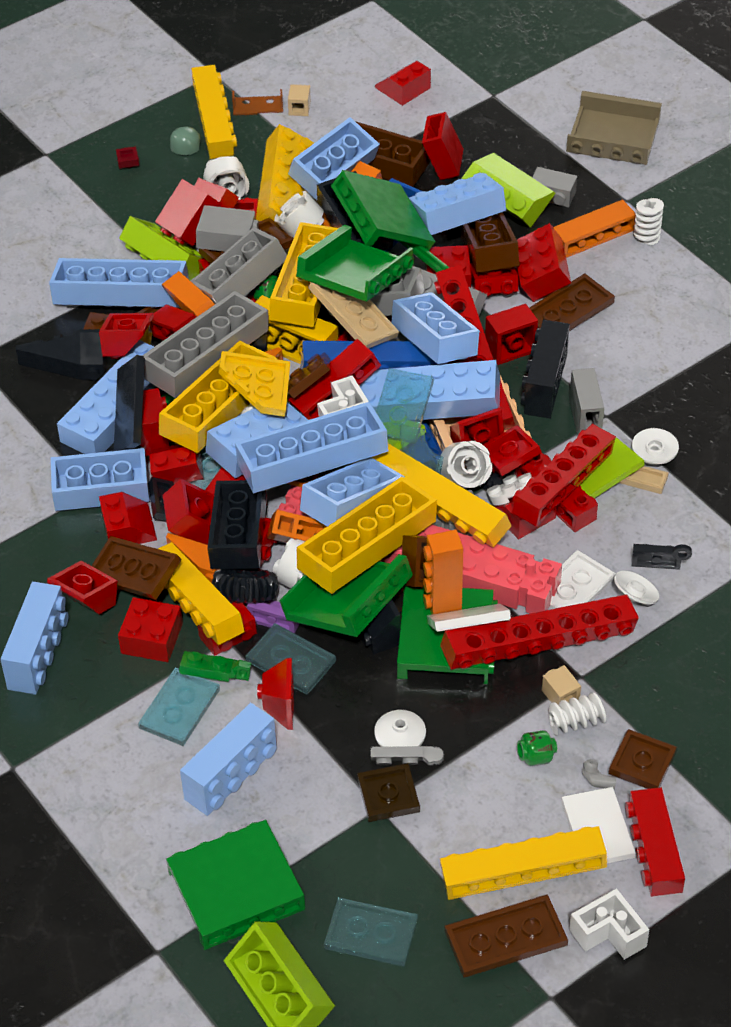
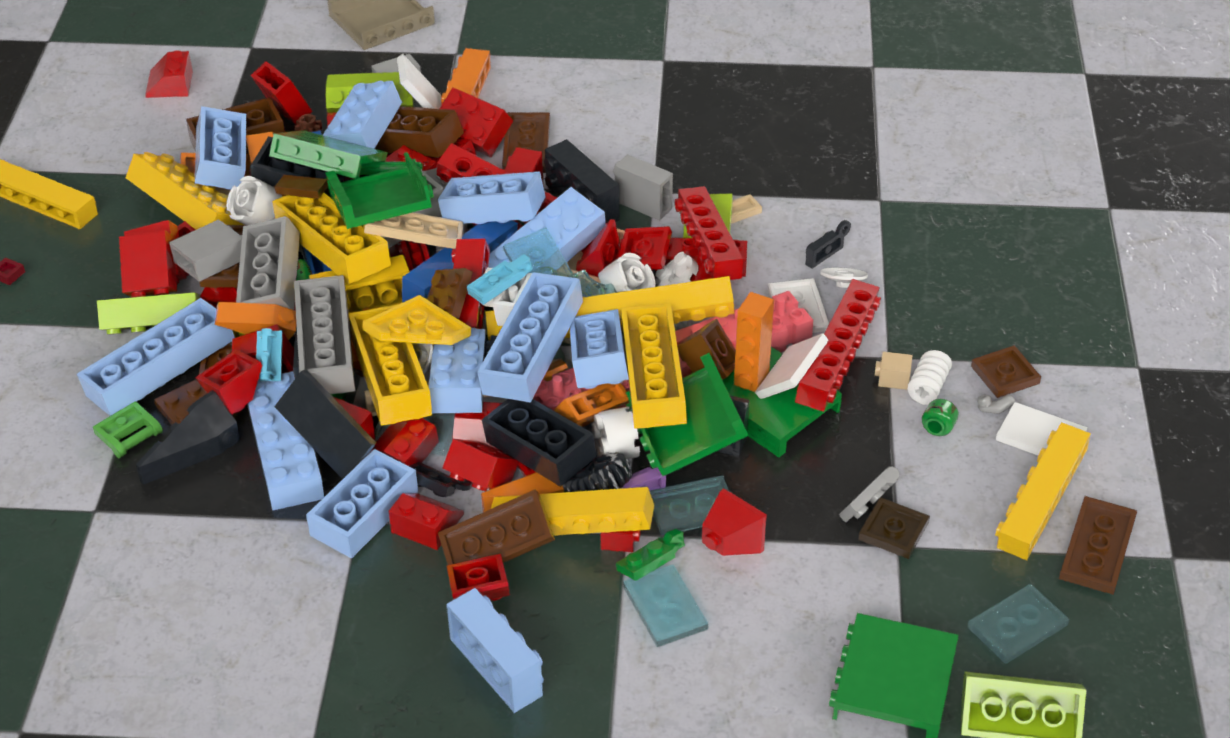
camera: 50 degrees left, 5 degrees down
(53, 314) = (124, 423): none -> bright green plate
(150, 629) = (568, 570): red brick -> none
(163, 328) = (269, 354): none -> medium azure hinge
(185, 141) = (41, 228): sand green hair -> none
(227, 173) = (126, 218): white brick -> none
(228, 759) = (772, 599): light blue brick -> none
(257, 104) = (64, 168): dark orange piece -> none
(299, 100) = (101, 139): tan brick -> none
(325, 221) = (301, 186): none -> reddish brown tile
(338, 389) = (499, 279): none -> medium azure hinge
(389, 735) = (834, 487): white dish -> none
(435, 180) = (308, 123): none -> copper gear
(536, 203) = (417, 84): none -> white tile
(610, 919) = (1148, 474): white brick -> none
(648, 220) = (504, 49): white piece -> none
(655, 446) = (721, 181): white dish -> none
(656, 842) = (1090, 409): red brick -> none

